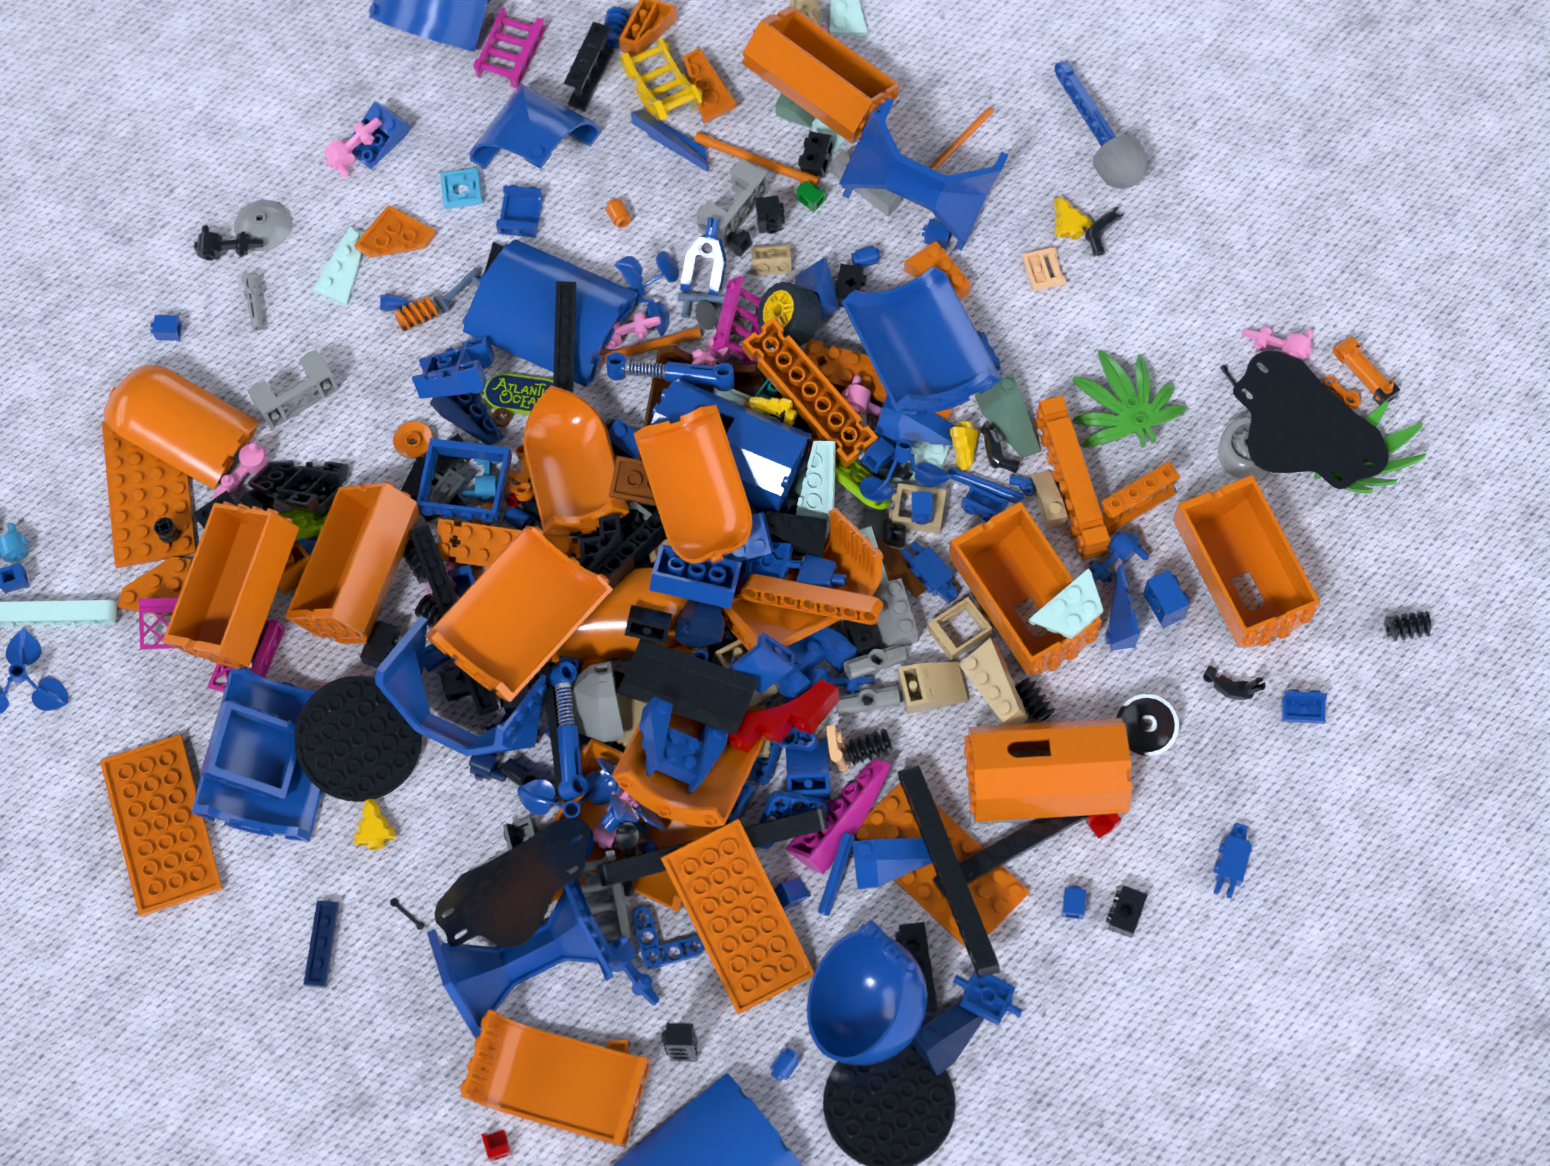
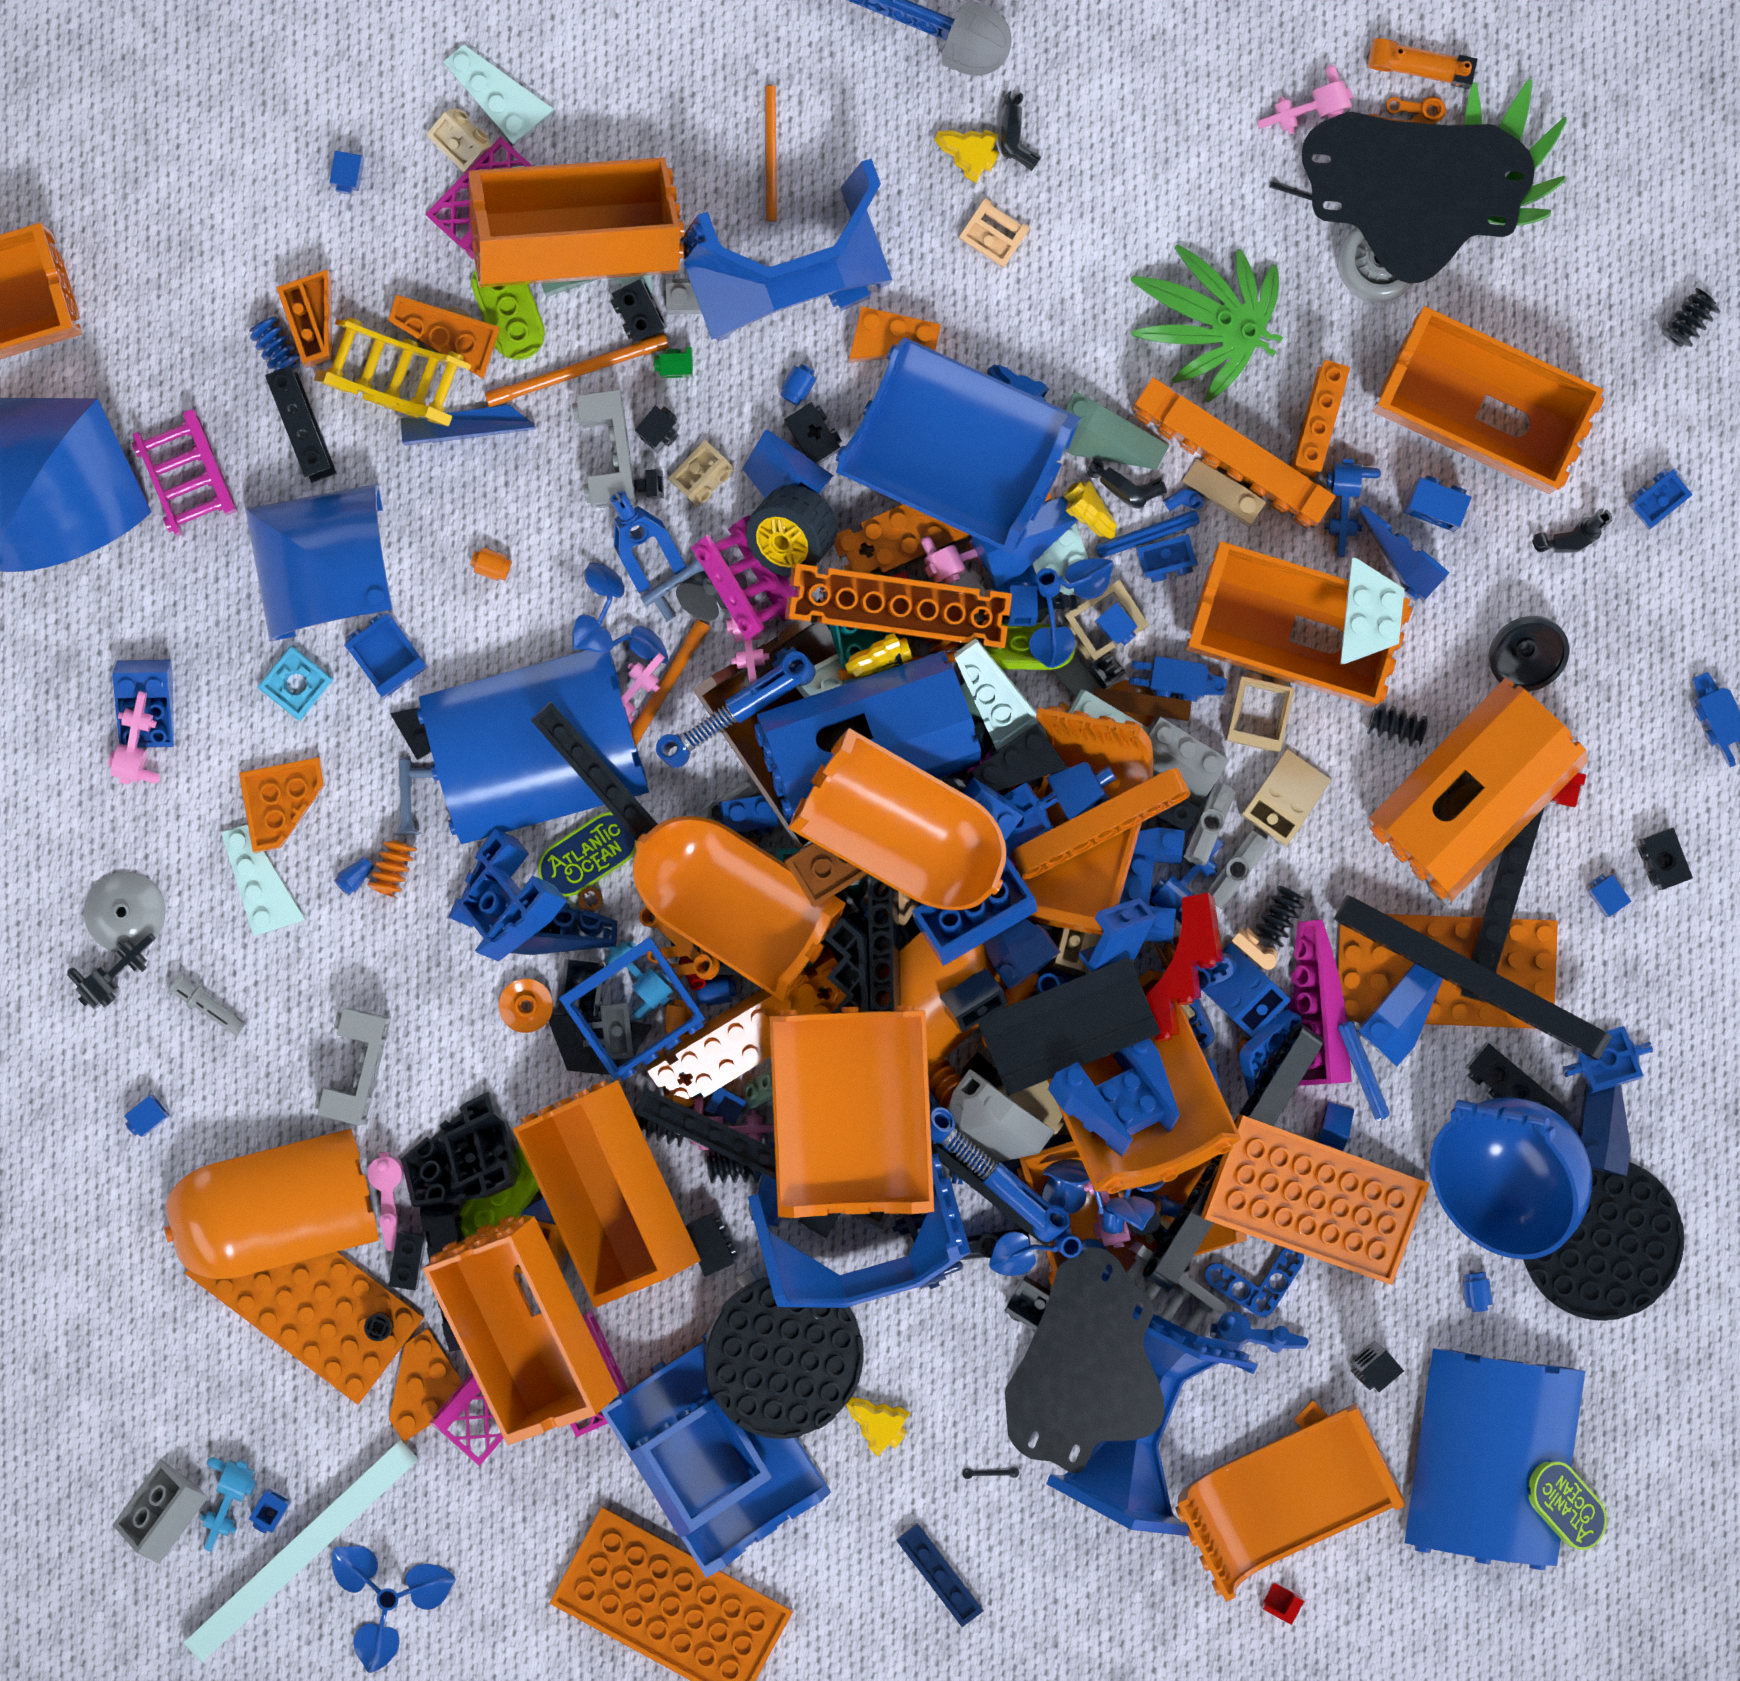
camera: 45 degrees left, 20 degrees up
(753, 105) = (517, 316): none -> lime tile
(992, 679) = (1349, 746): tan wedge -> none

